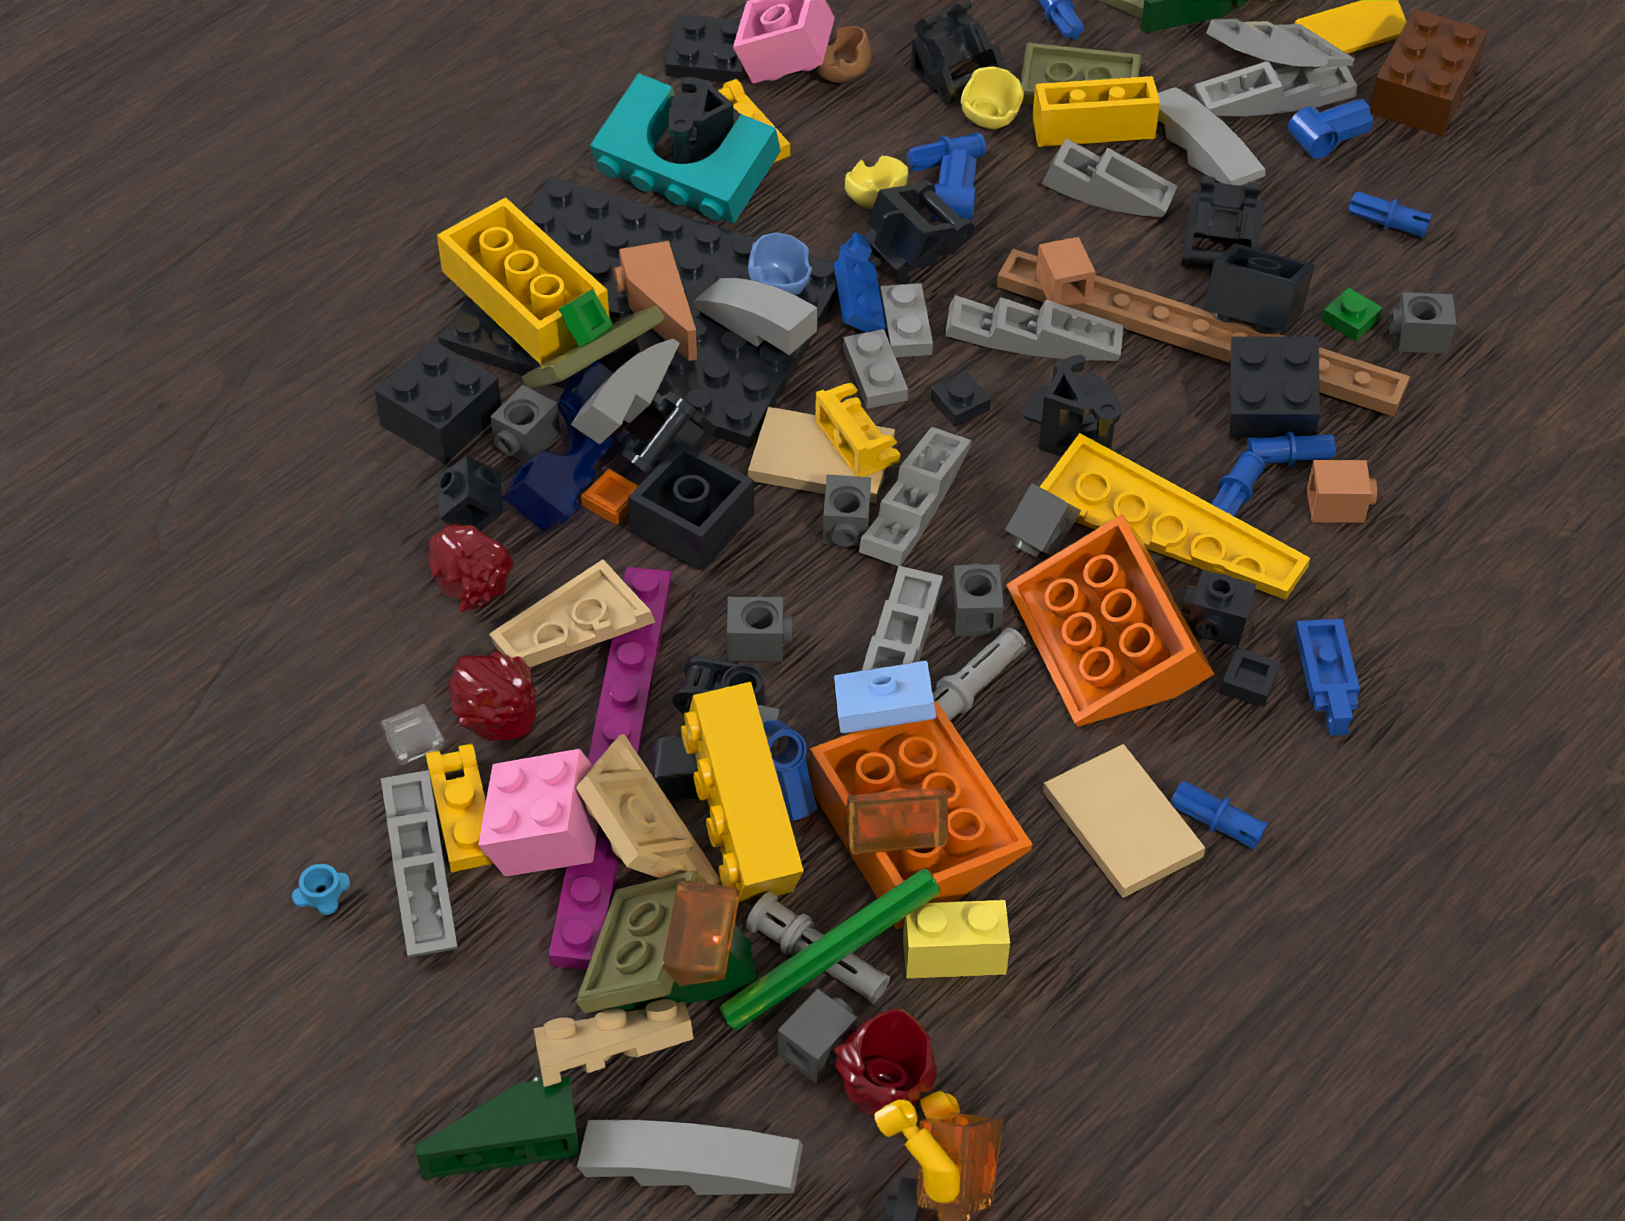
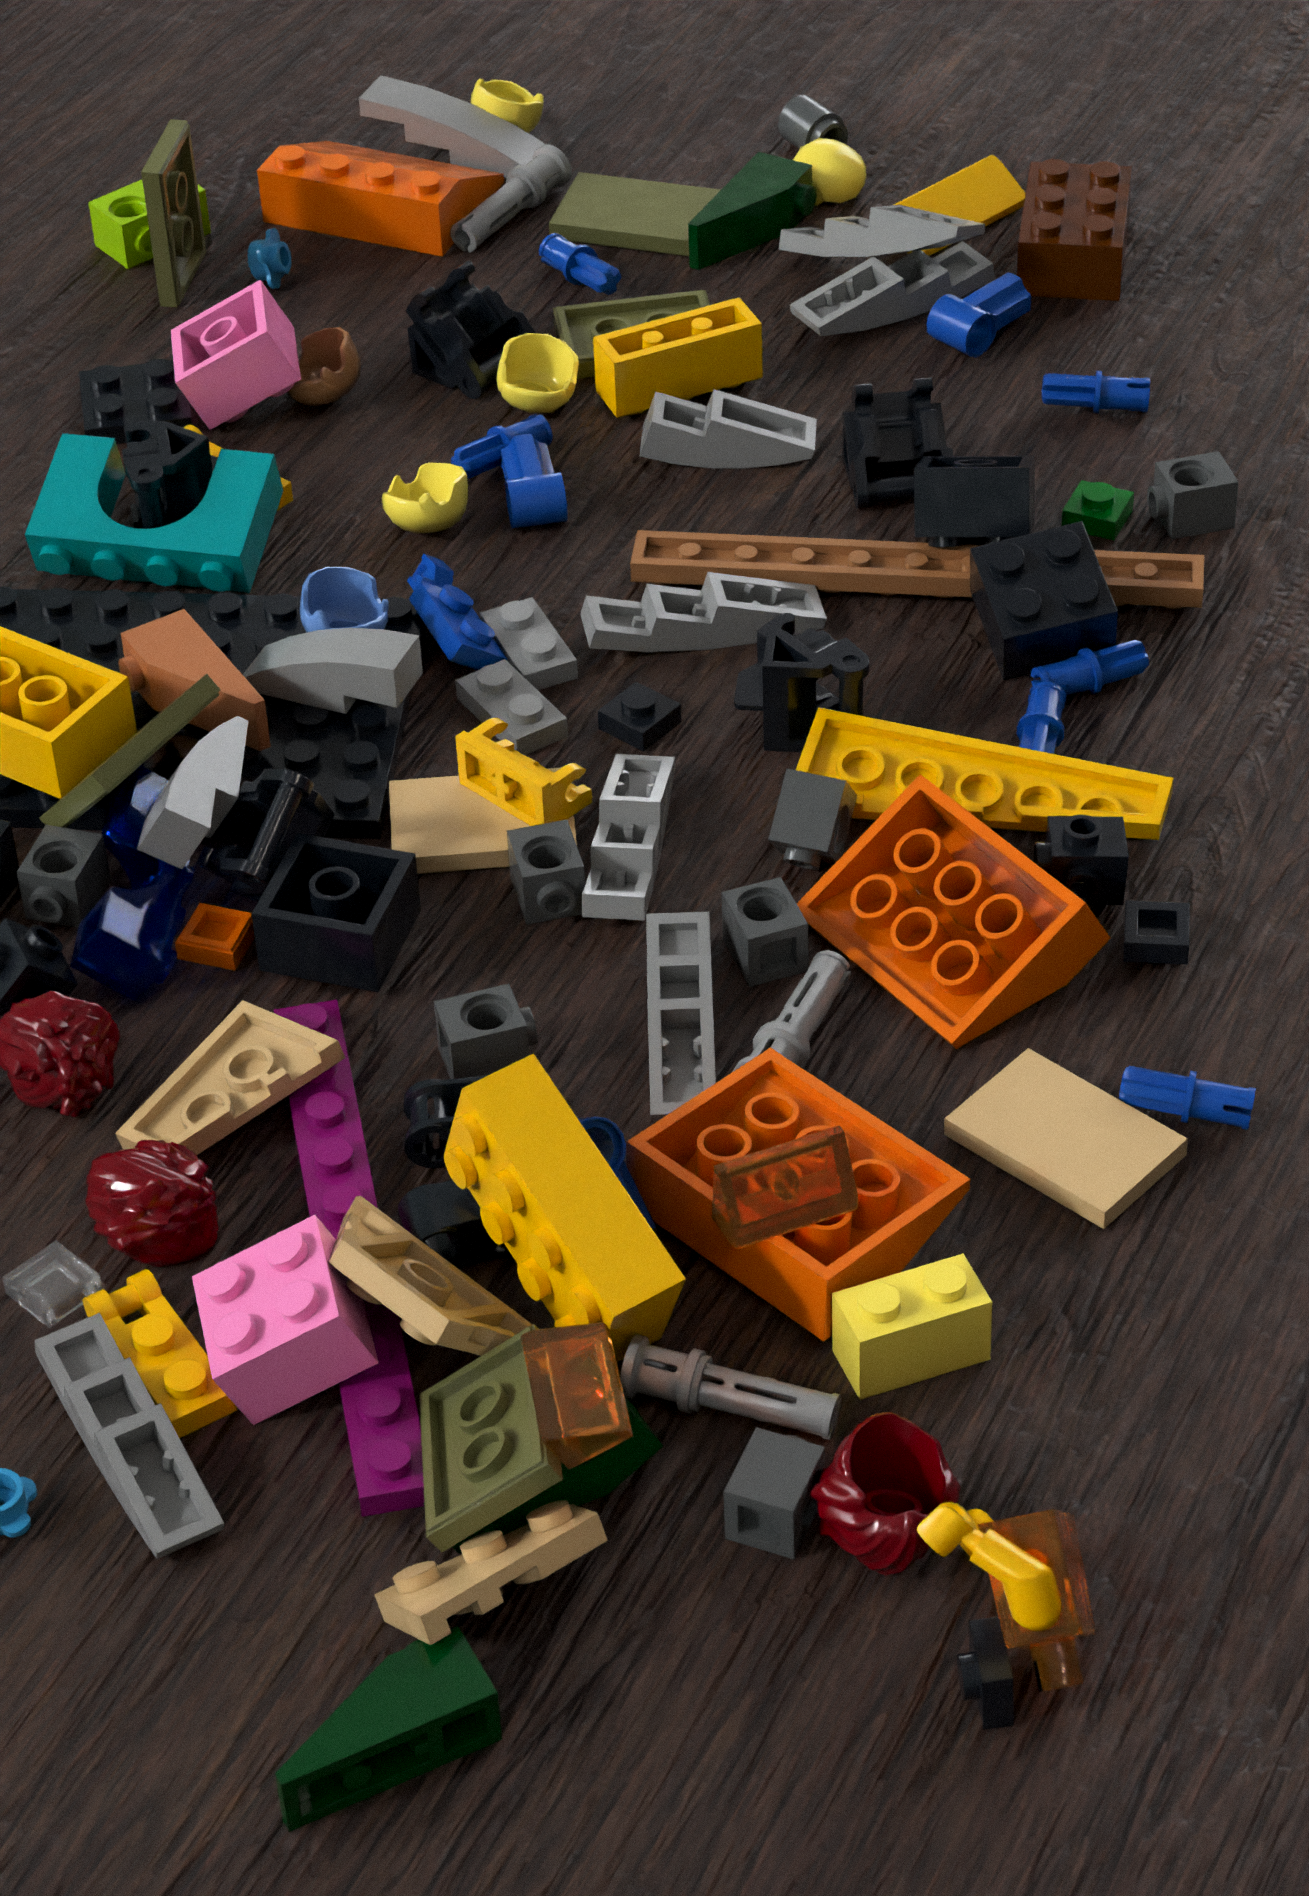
camera: 15 degrees left, 10 degrees down
(585, 318) = (112, 713): green plate -> none
(690, 1154) = (676, 1679): light grey slope -> none
(829, 949) = (751, 1378): green axle -> none
(884, 697) = (699, 1060): light blue plate -> none
(906, 236) = (501, 533): black piece -> none
(1065, 272) = (721, 533): nougat brick -> none
(1208, 140) = (832, 359): light grey slope -> none
(1328, 671) = (1252, 902): blue hinge -> none
(1340, 491) = (1174, 699): nougat brick -> none

